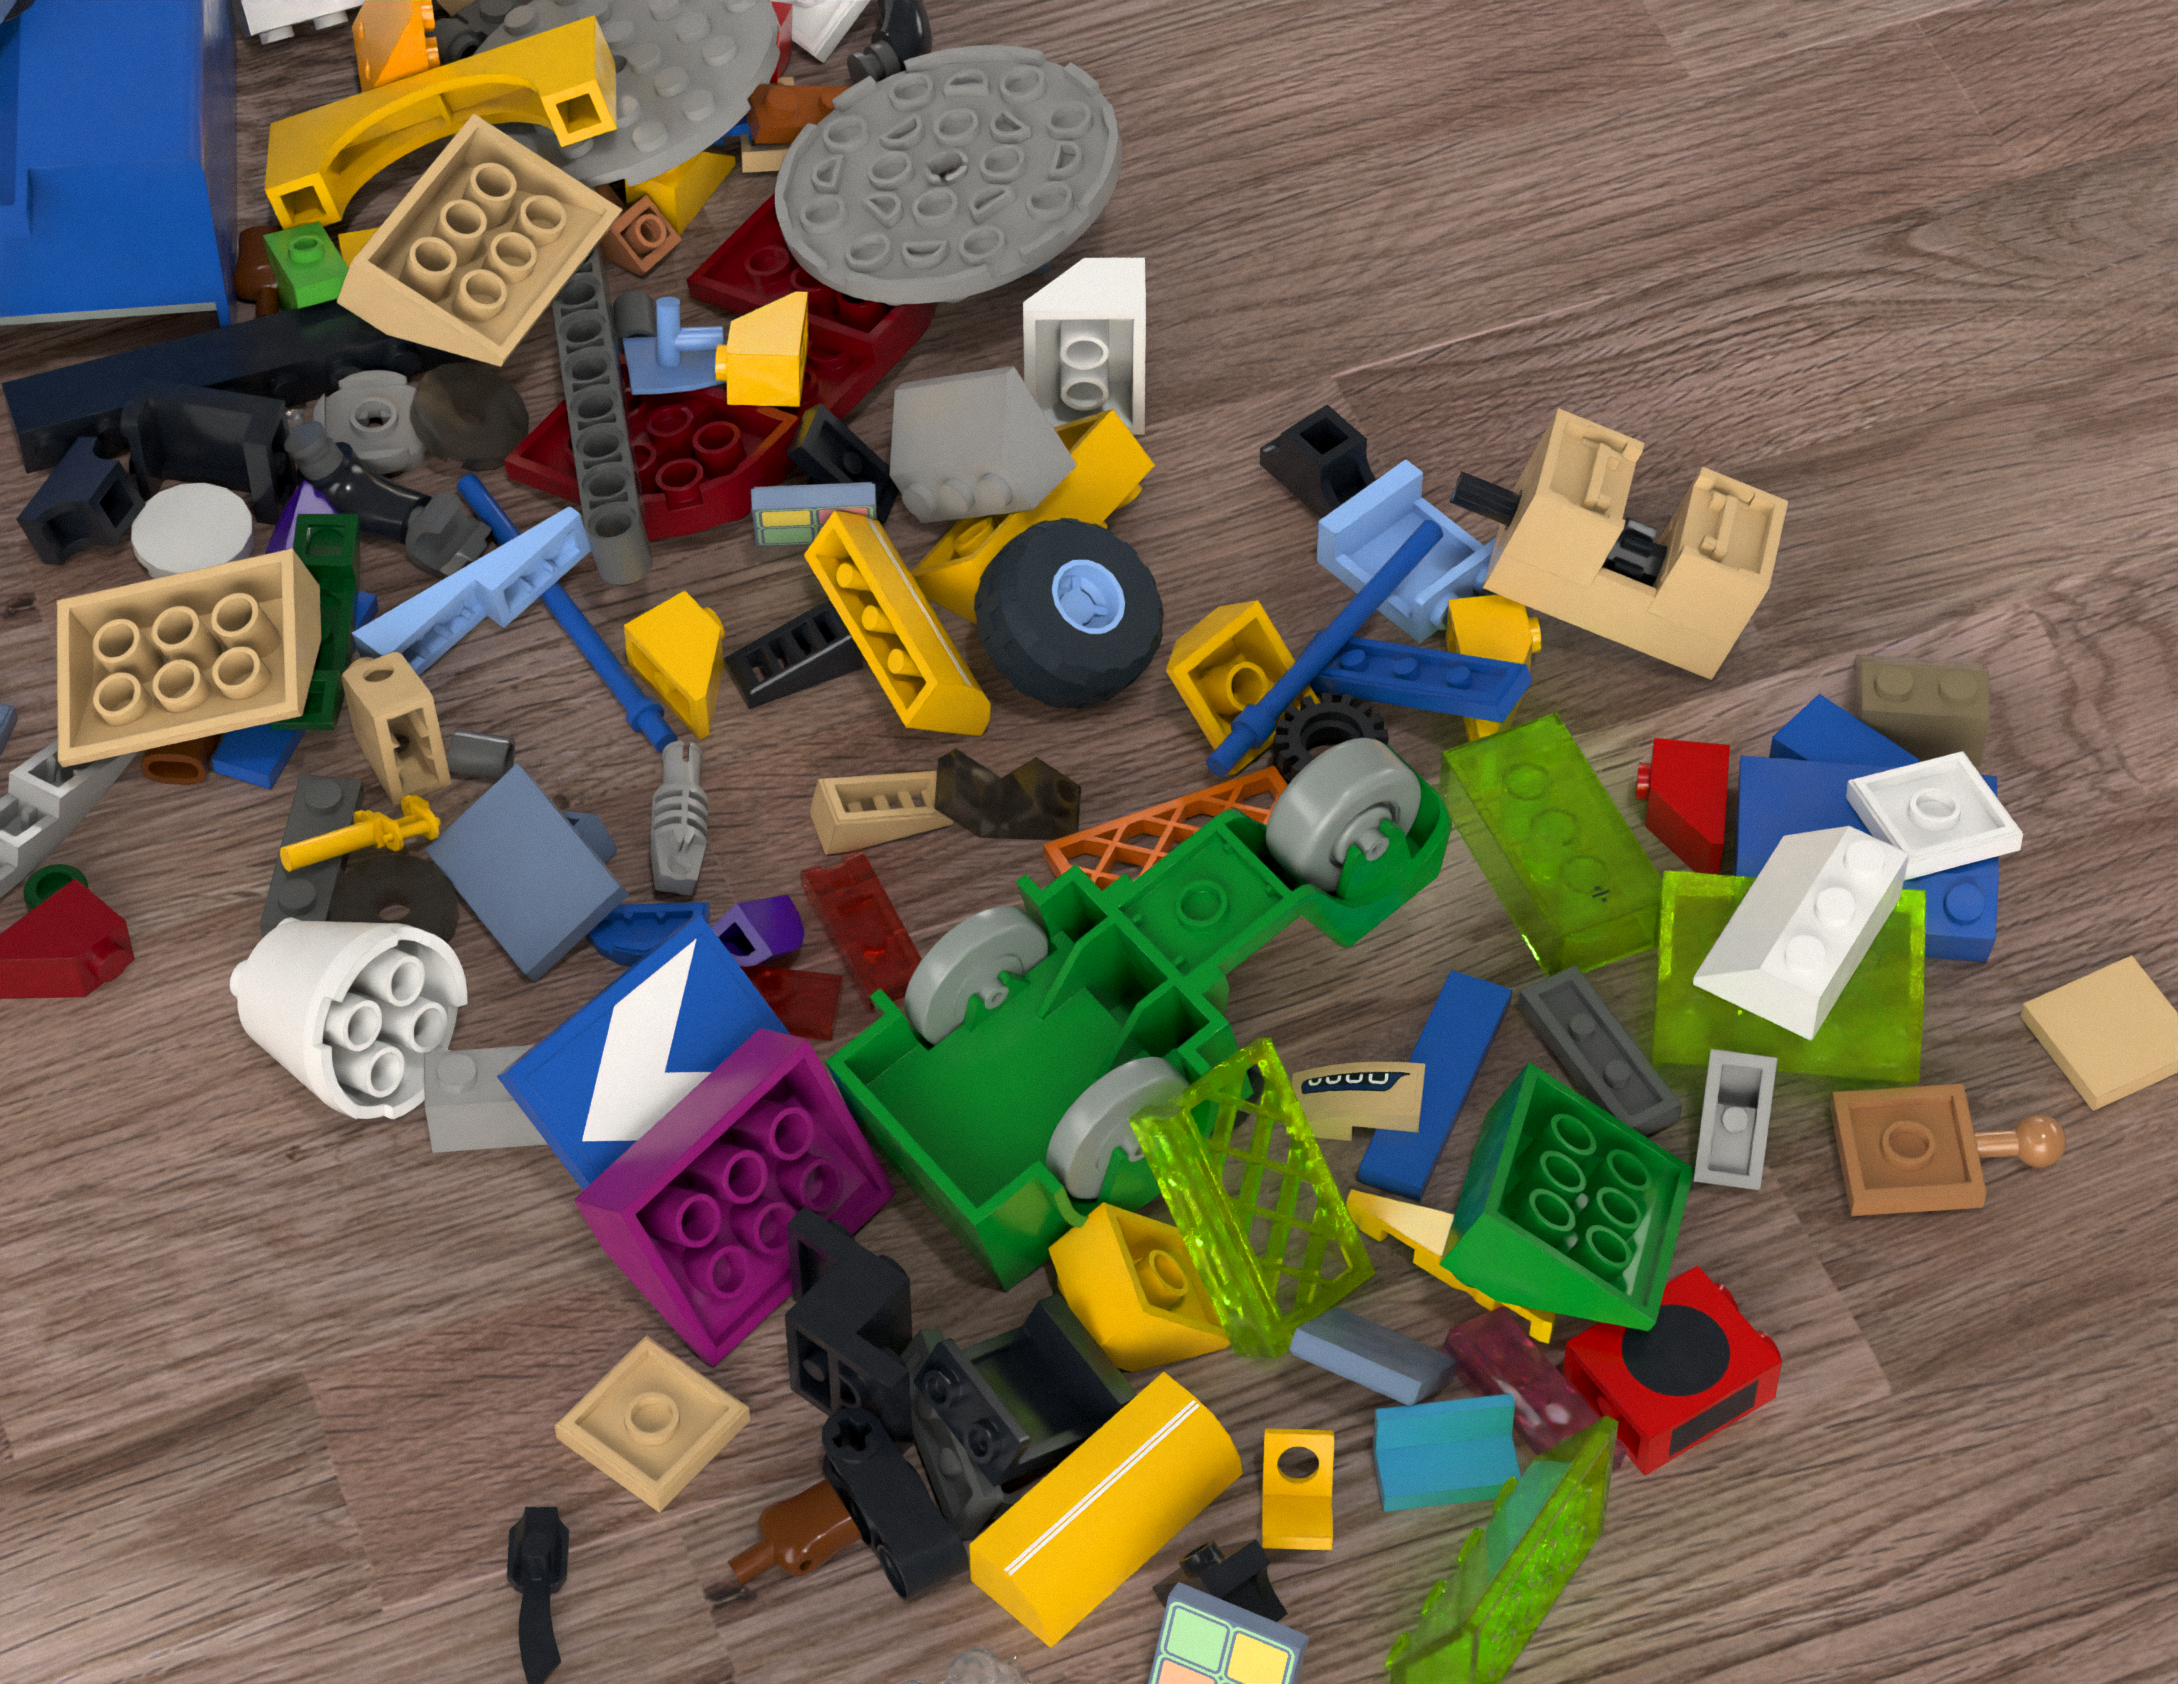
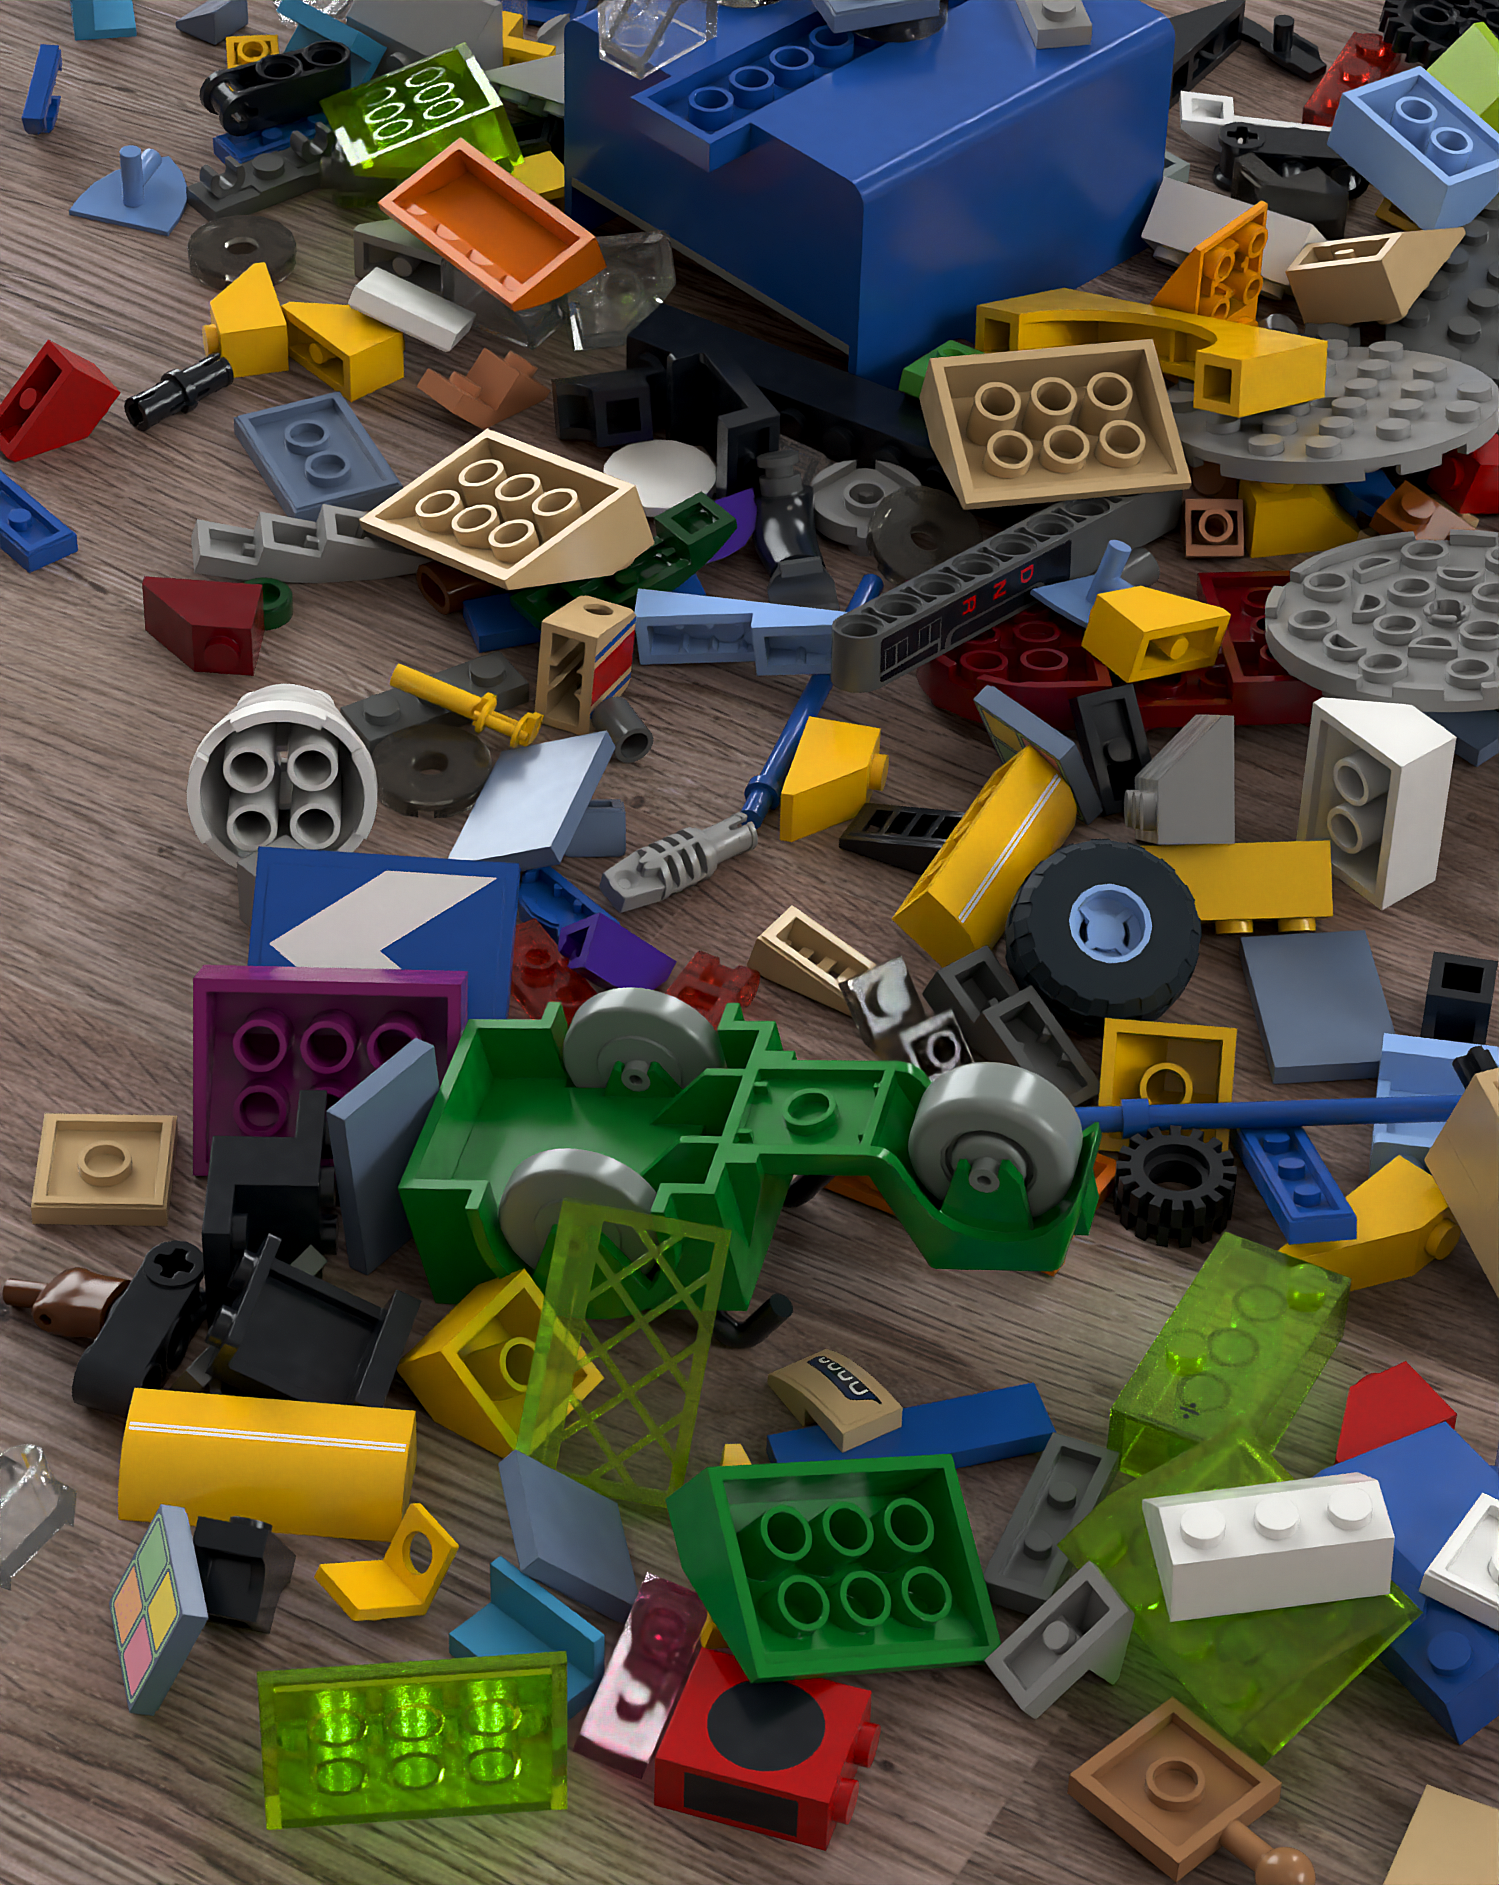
camera: 50 degrees right, 10 degrees down
(892, 1205) = (371, 1146): none -> sand blue tile
(1087, 738) = (1010, 1024): none -> dark grey slope
(1218, 538) = (1316, 1004): none -> sand blue tile

